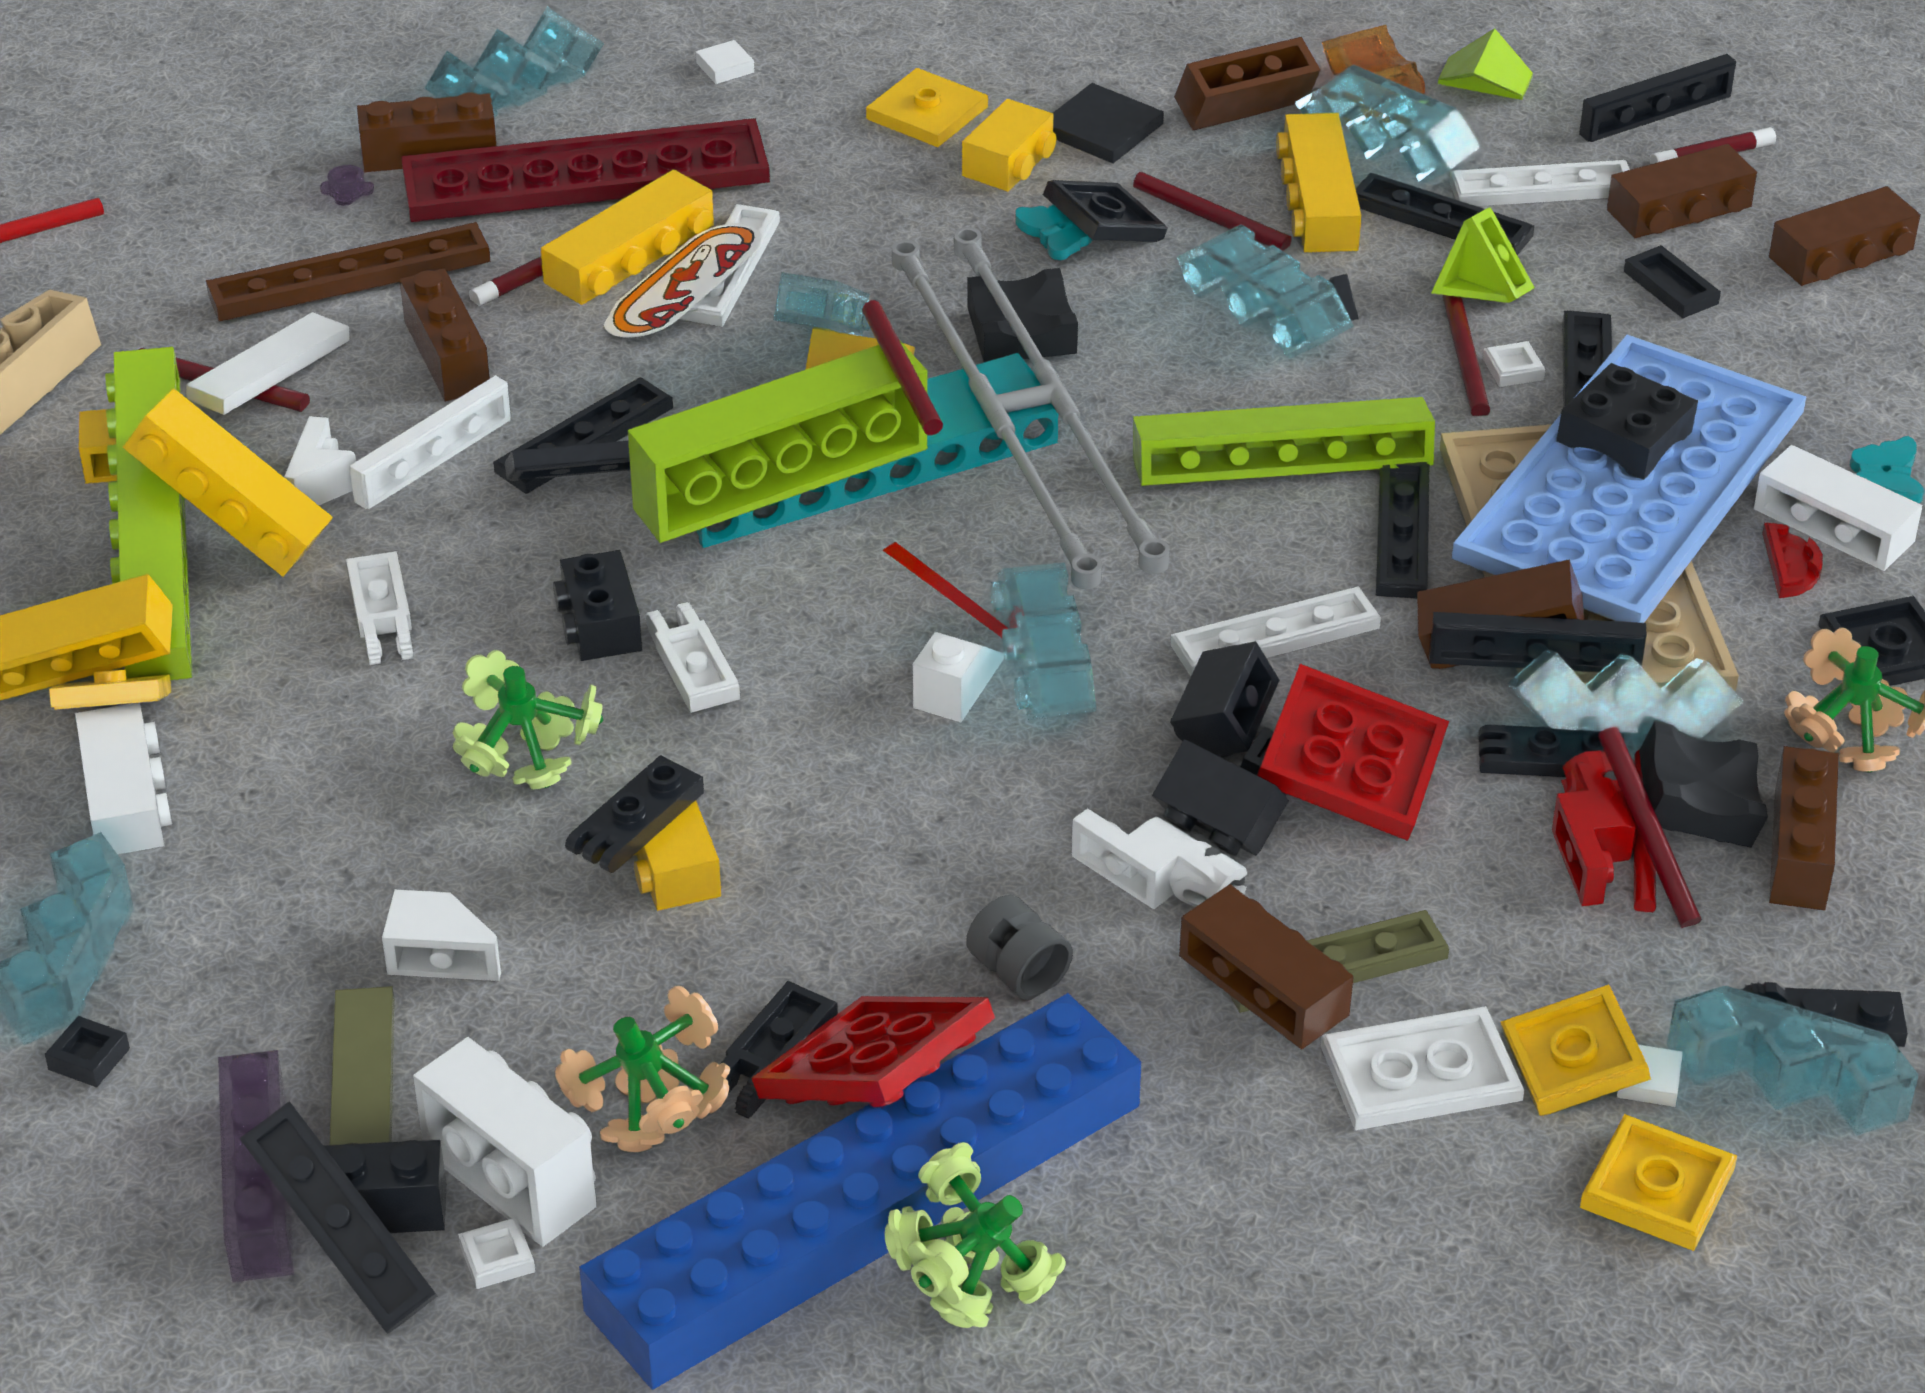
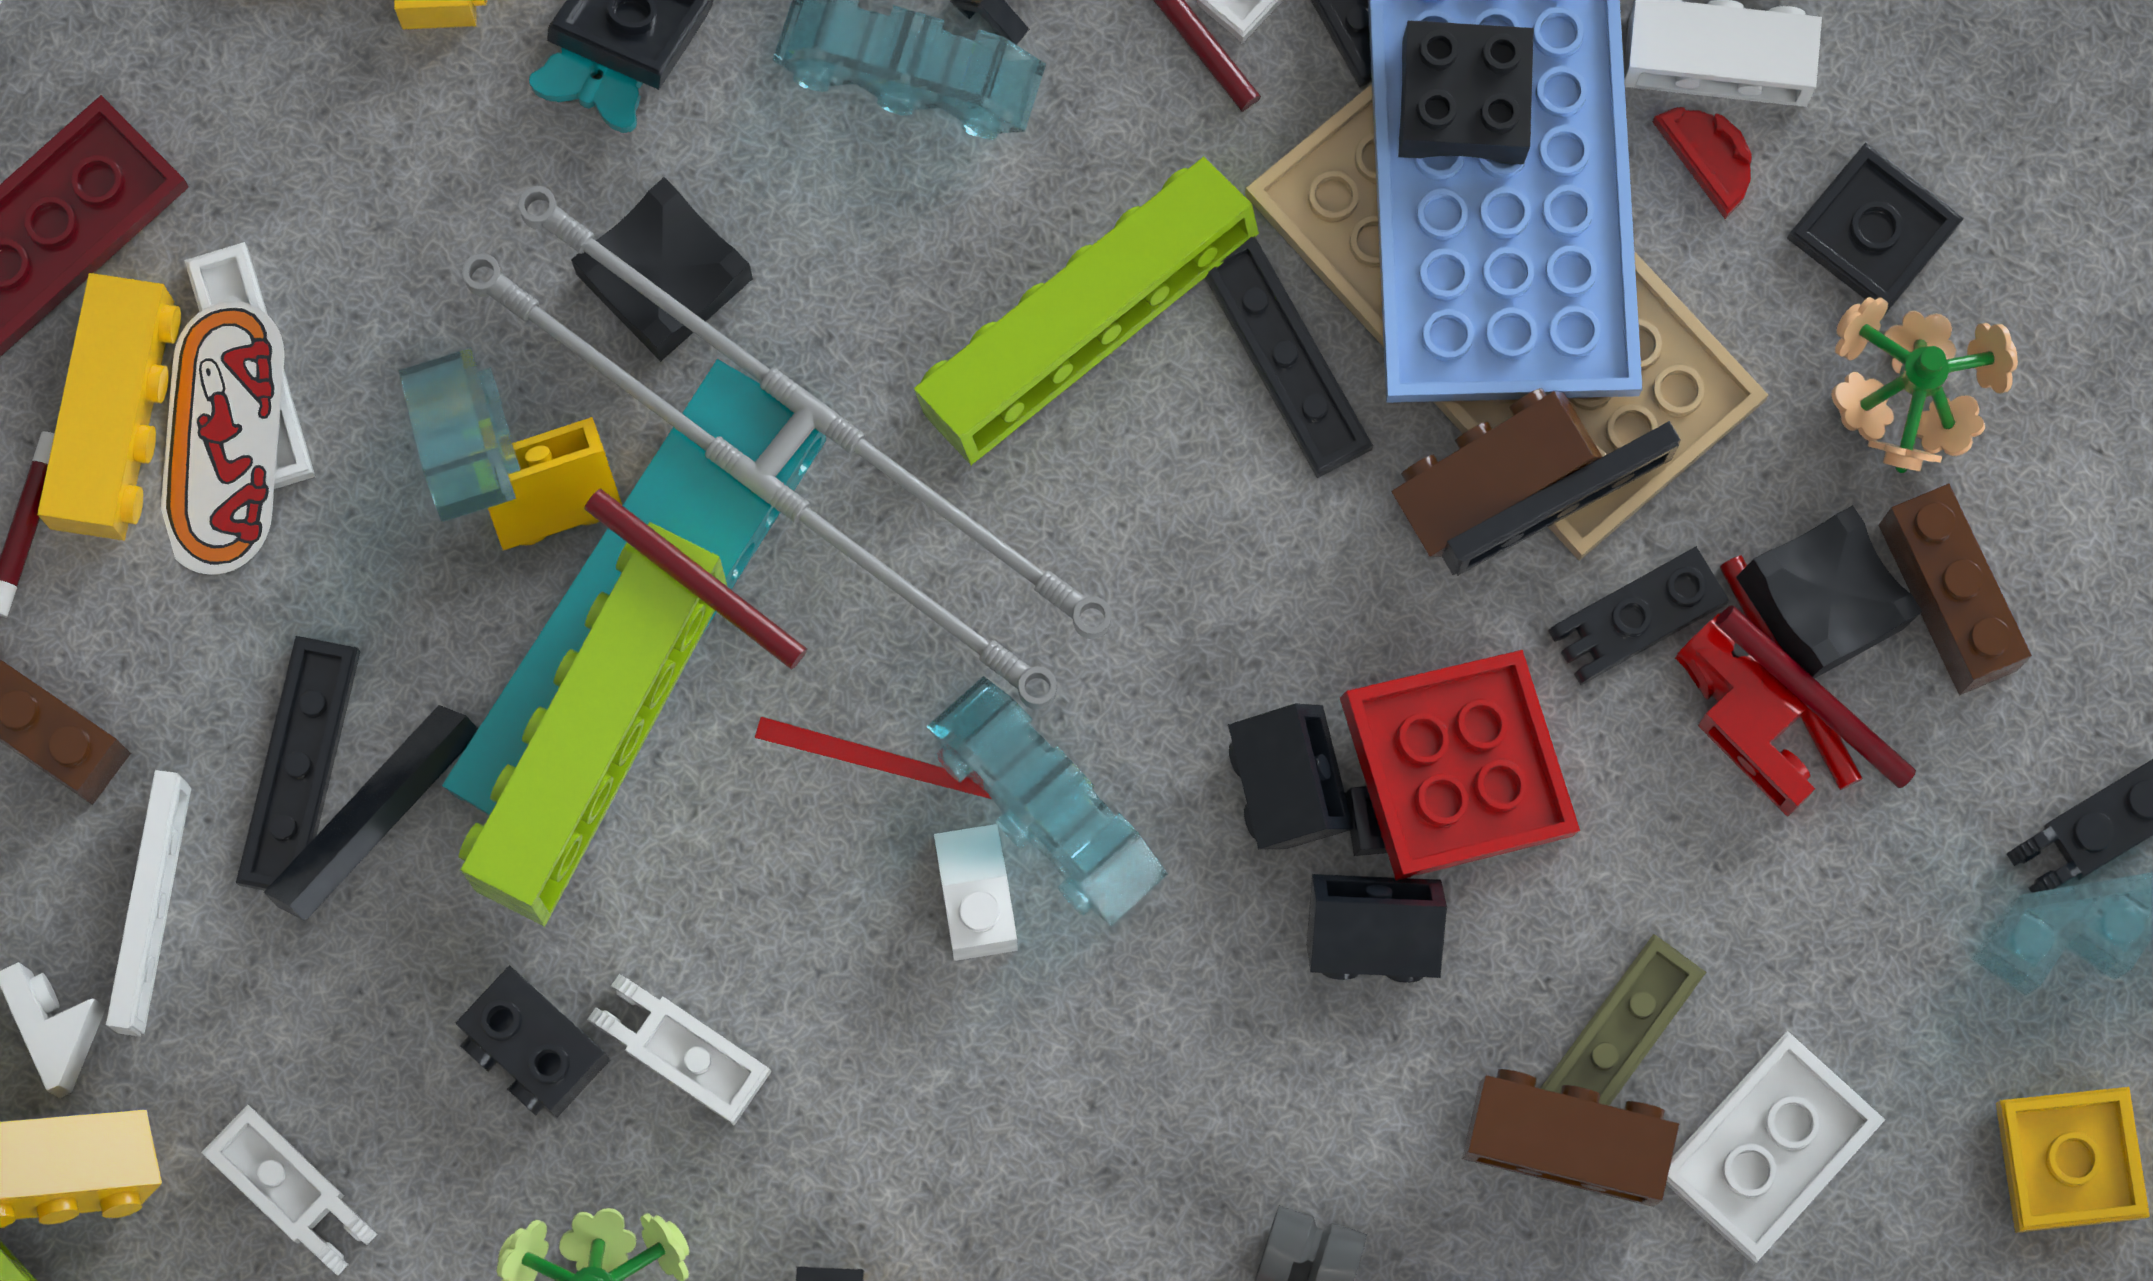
camera: 35 degrees left, 35 degrees up
(1155, 860) = (1369, 1037): white plate -> none
(1283, 627) = (1254, 608): white tile -> none
(1575, 1050) = (1905, 1040): yellow plate -> none
(1624, 696) = (1688, 520): clear light blue brick -> none
(1664, 1073) = (1983, 1016): white tile -> none

